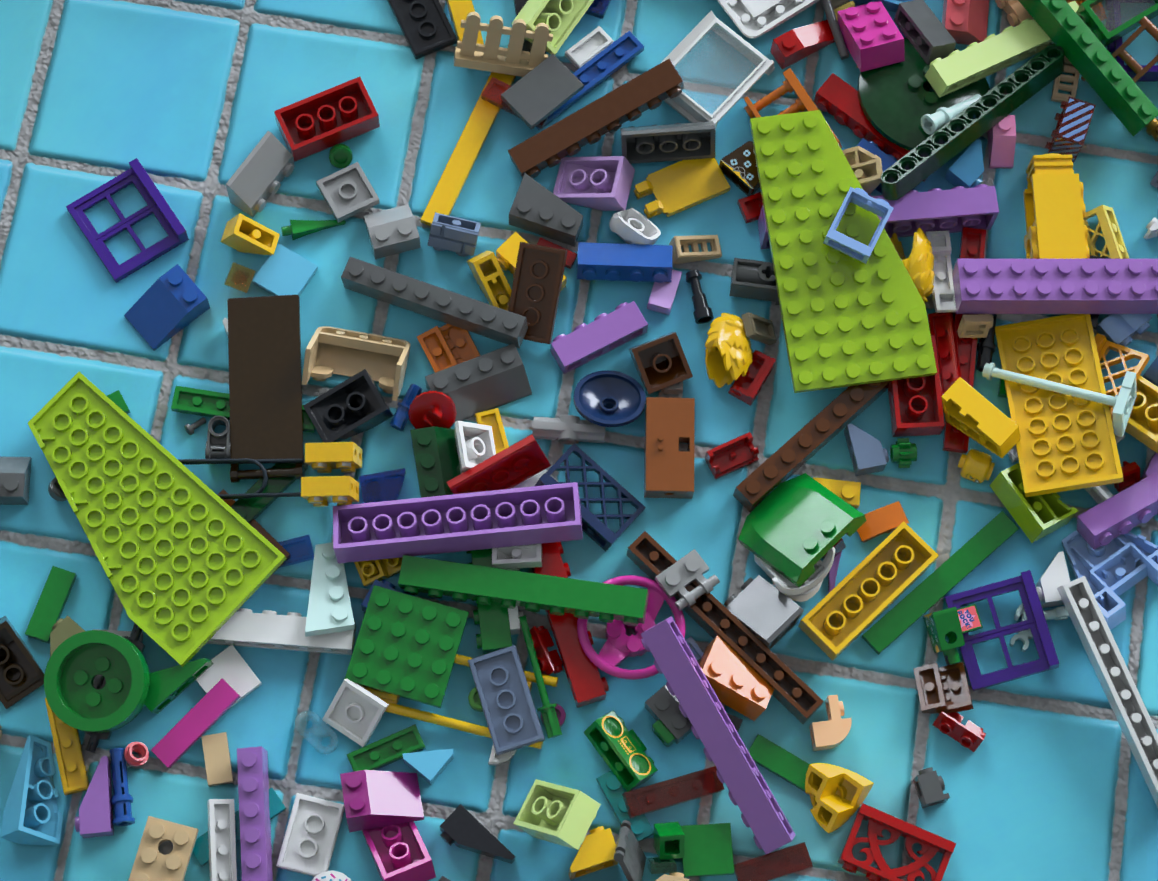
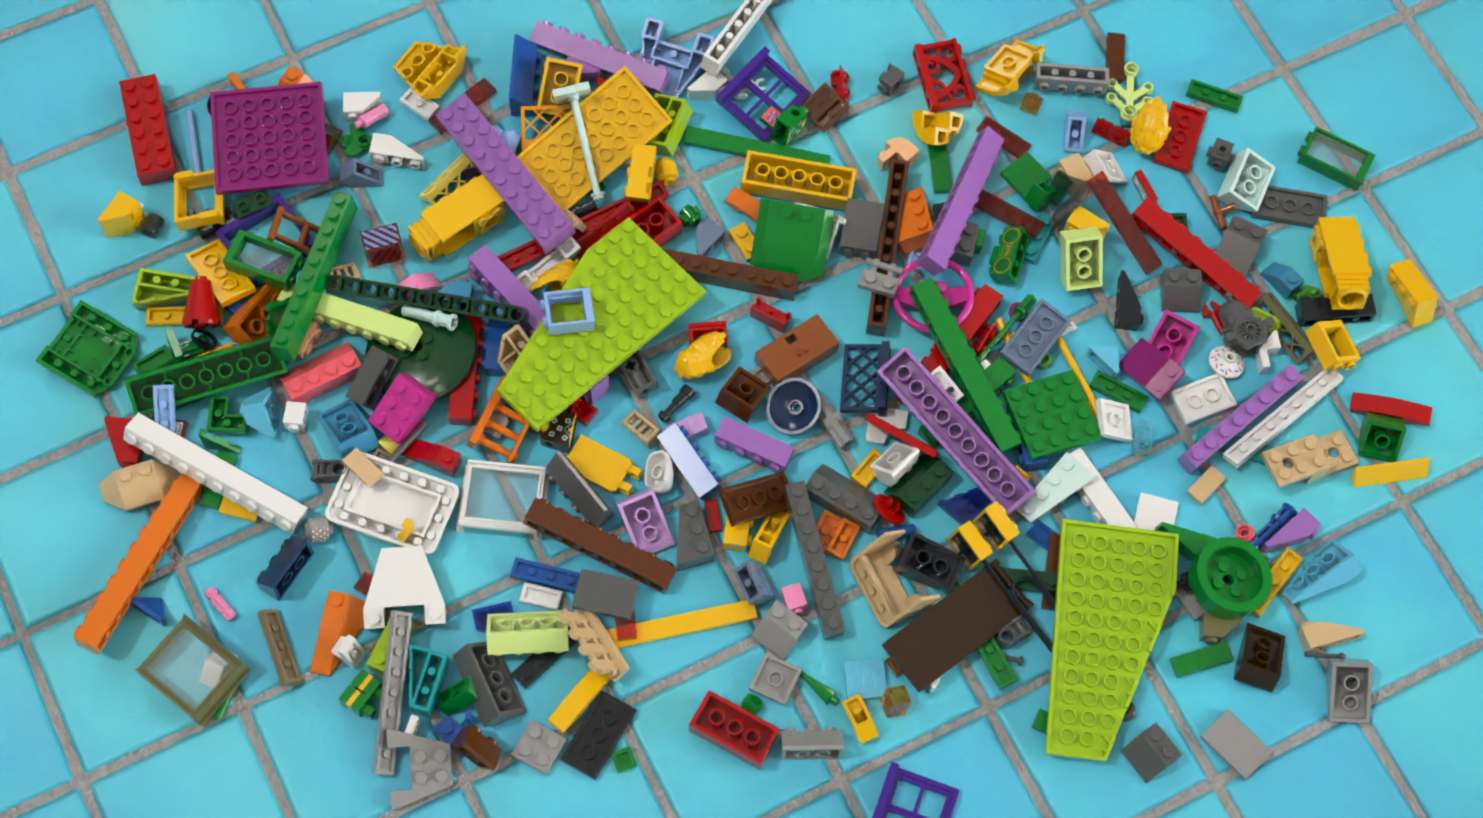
camera: 125 degrees left, 5 degrees down
(167, 307) = (951, 737): blue slope -> none
(195, 723) = (1197, 511): dark pink tile -> none
(378, 17) = (623, 759): none -> green tile
(411, 262) = (794, 598): none -> bright pink brick
(759, 328) = (674, 347): dark tan tile -> none

